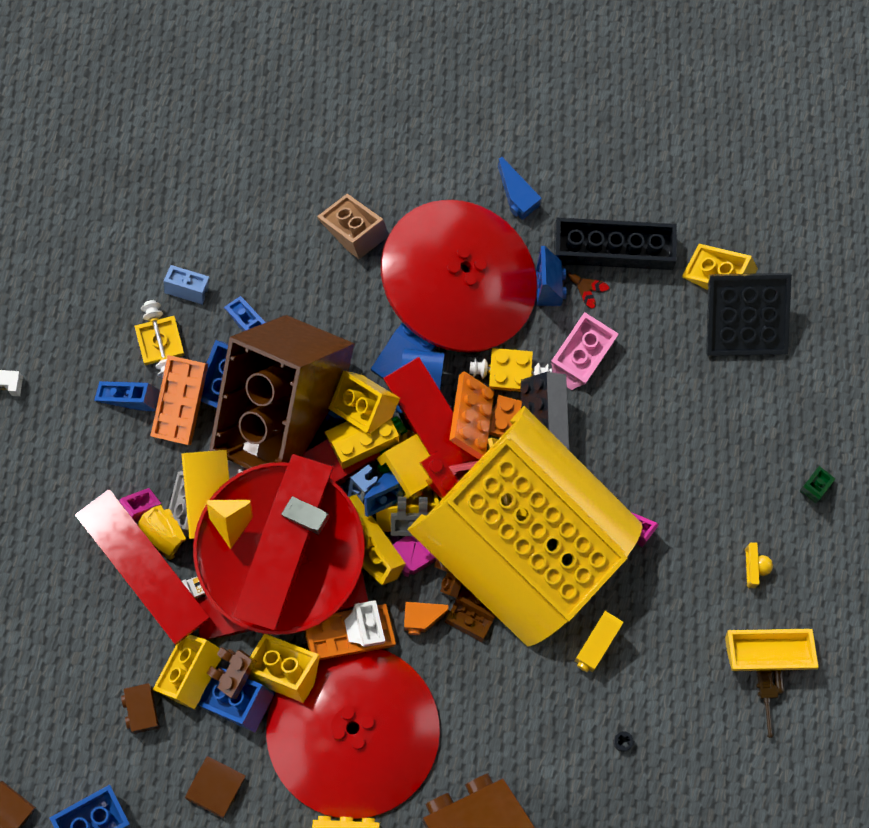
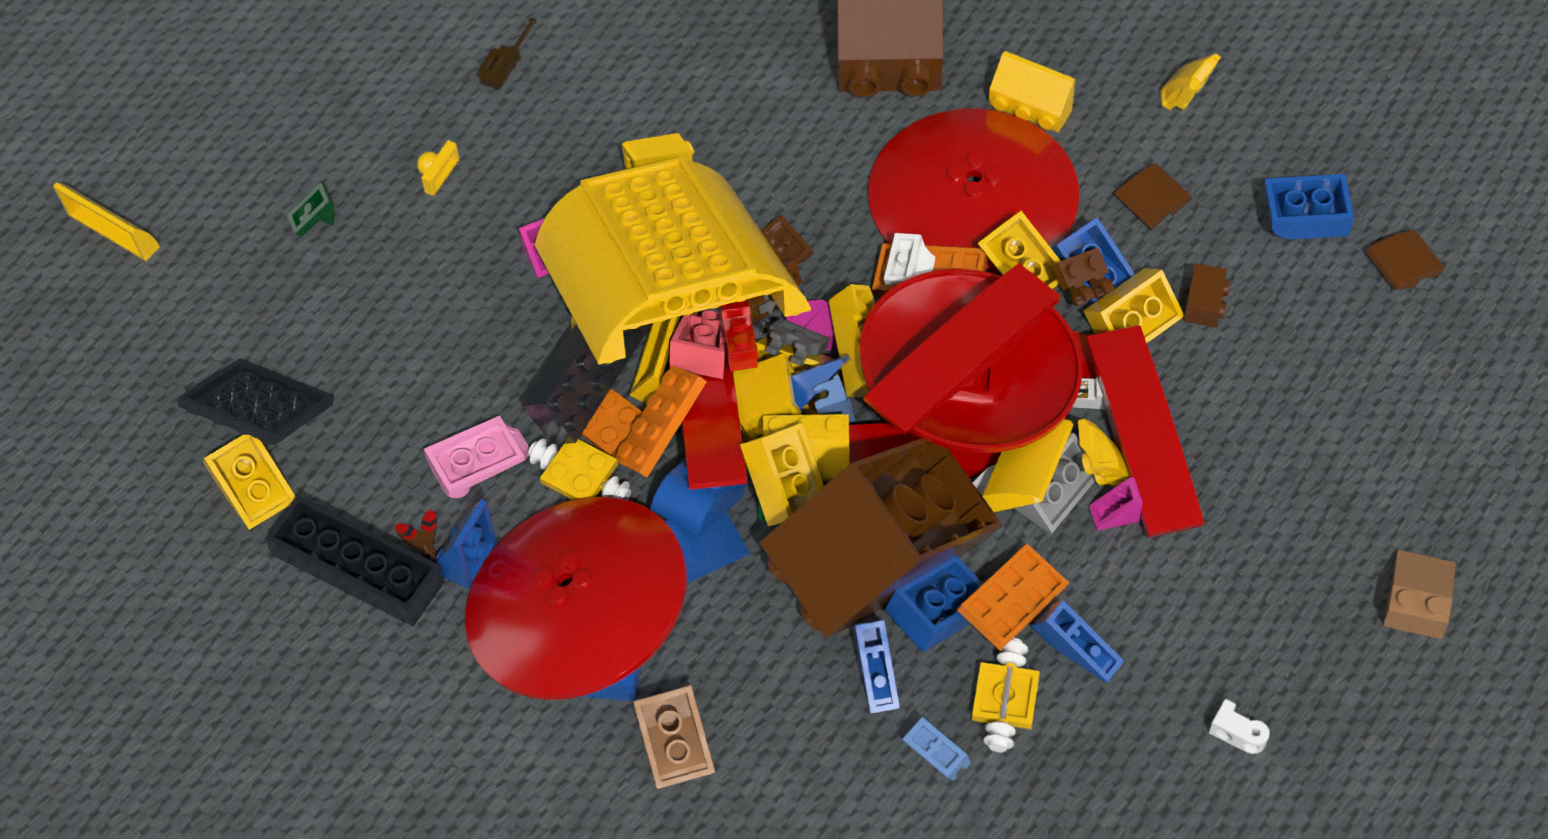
camera: 145 degrees left, 15 degrees down
(230, 518) = (1016, 400): yellow slope -> none
(305, 515) = (924, 347): slope -> none
(422, 616) = (835, 260): orange slope -> none
(520, 195) = (433, 682): blue slope -> none
(622, 748) = (687, 80): black bush -> none
(771, 649) = (479, 81): yellow slope -> none

